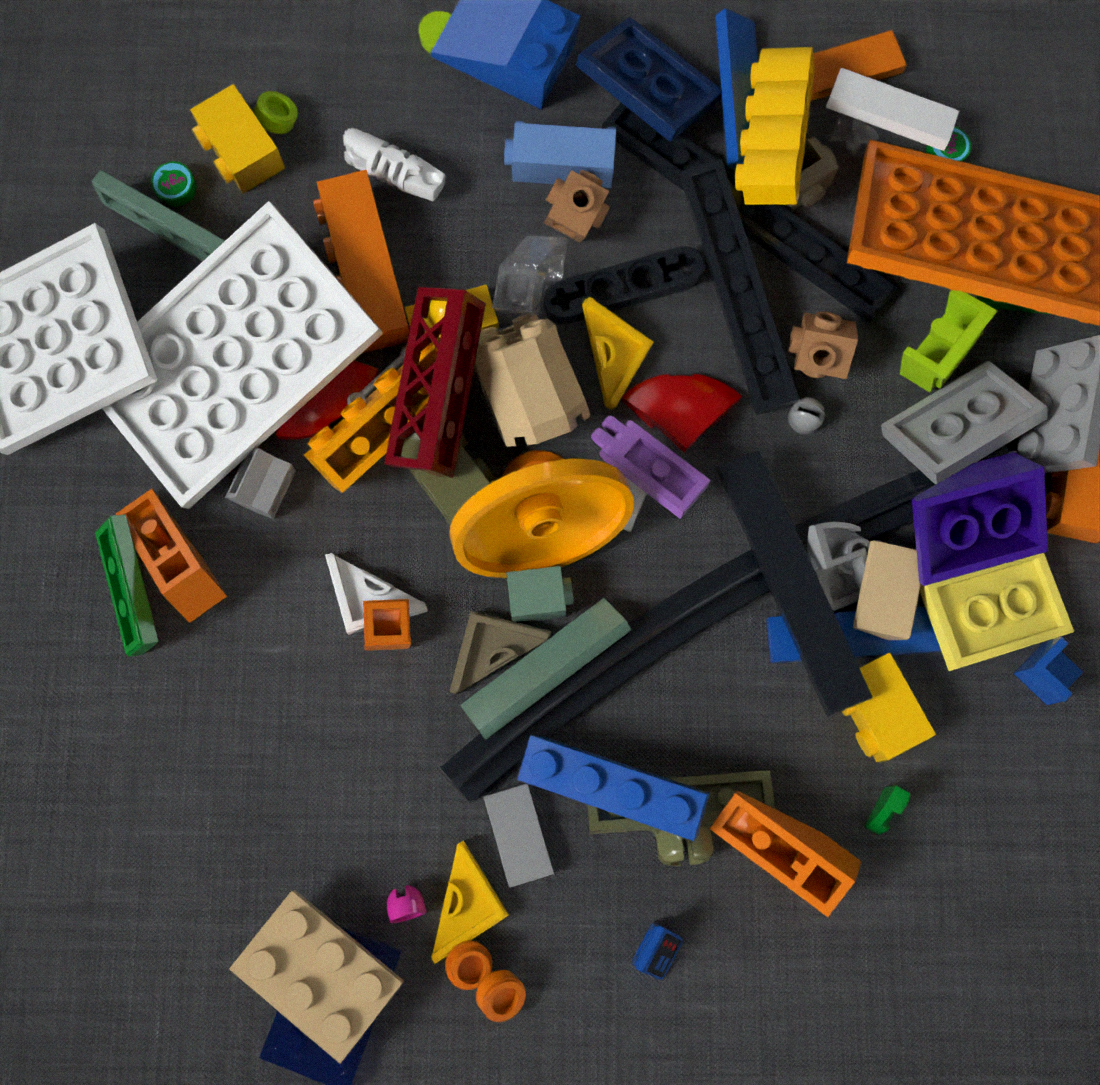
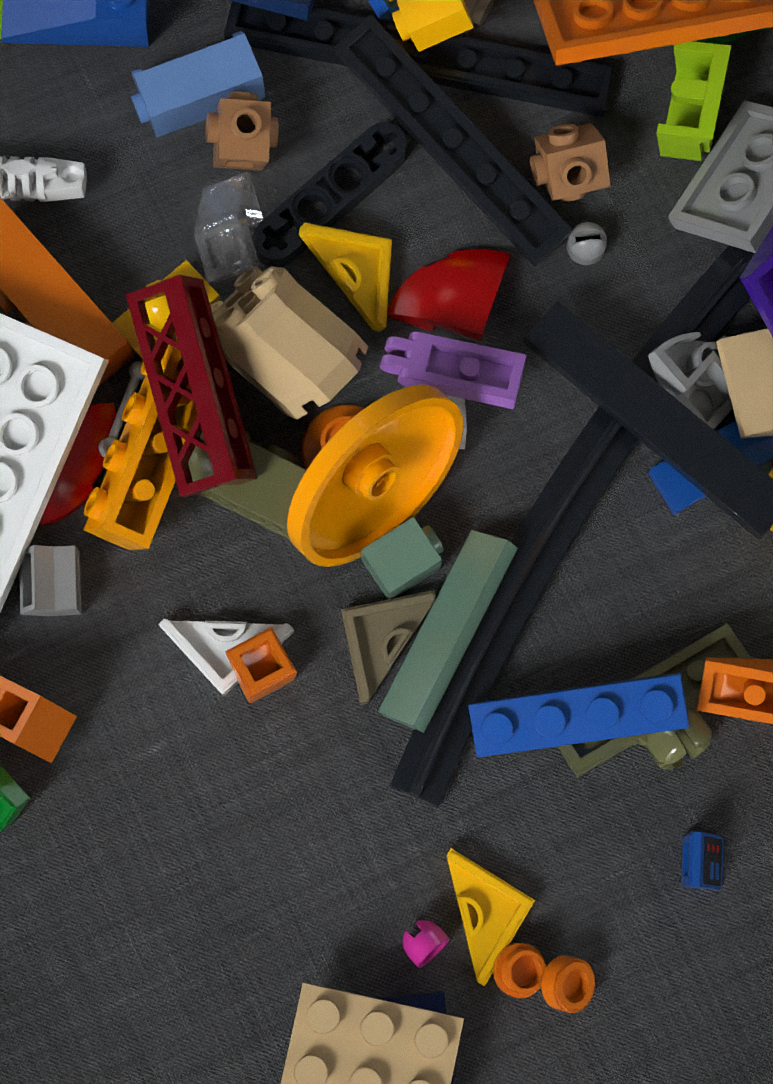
camera: 25 degrees left, 0 degrees up
(518, 835) = (504, 814): light grey tile -> none

